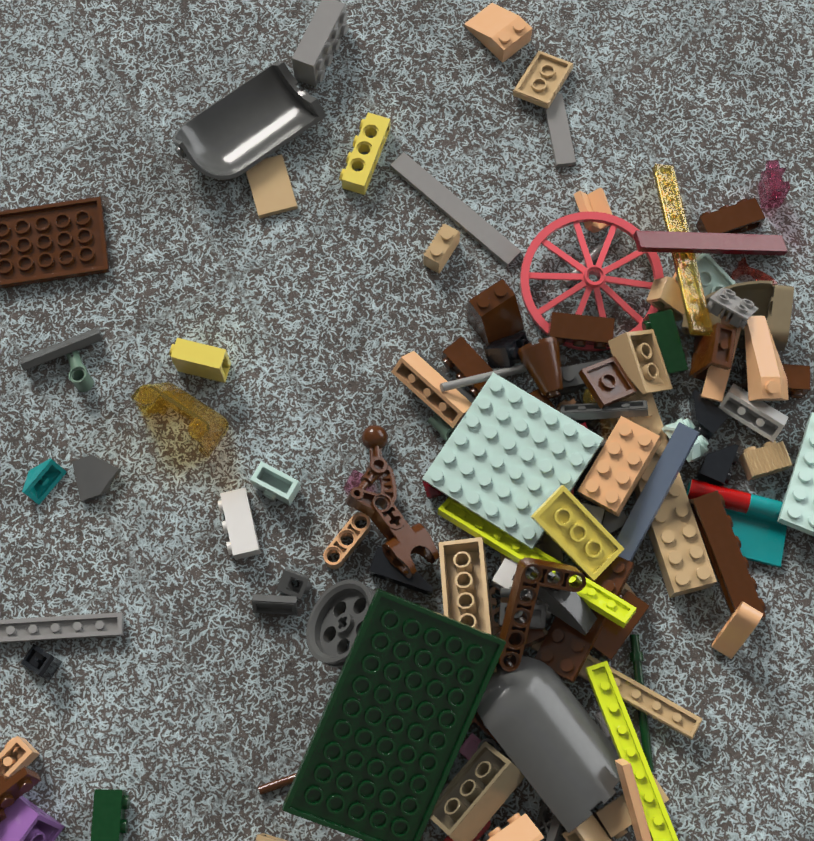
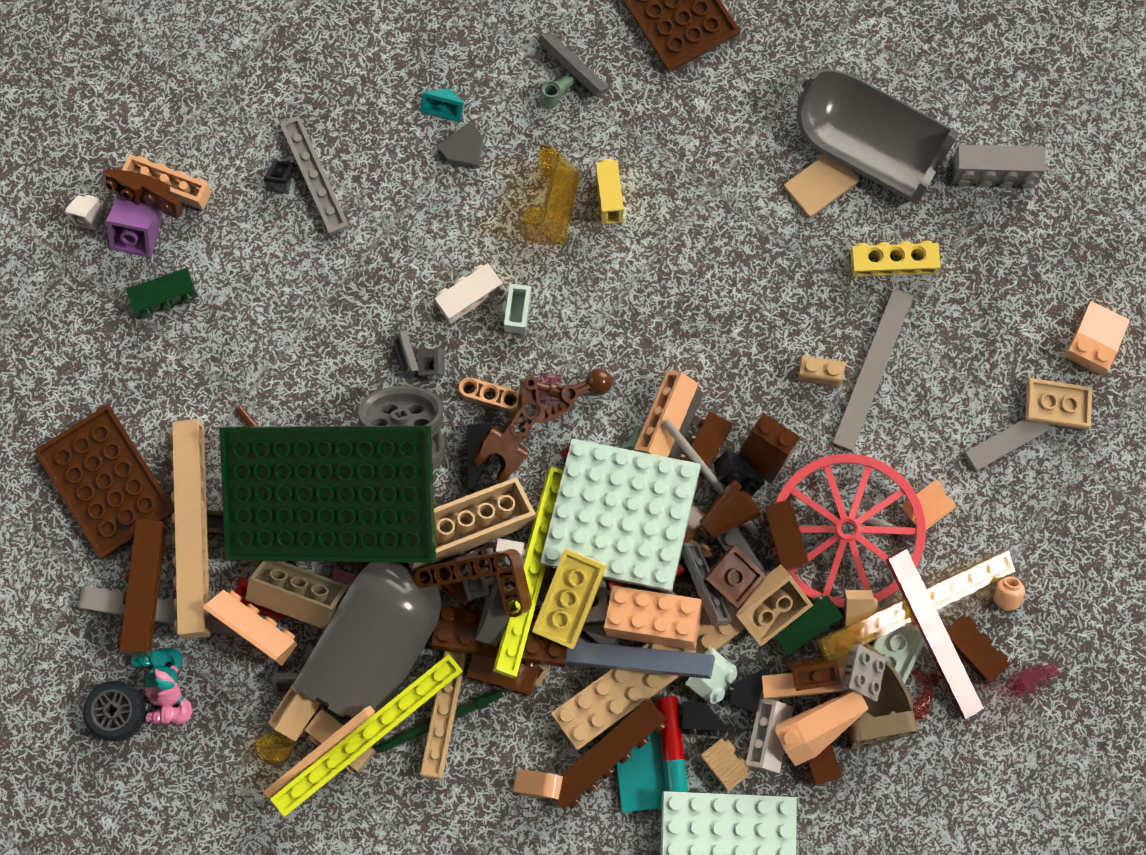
camera: 70 degrees right, 5 degrees up
(692, 176) = (1009, 593): none -> light nougat head

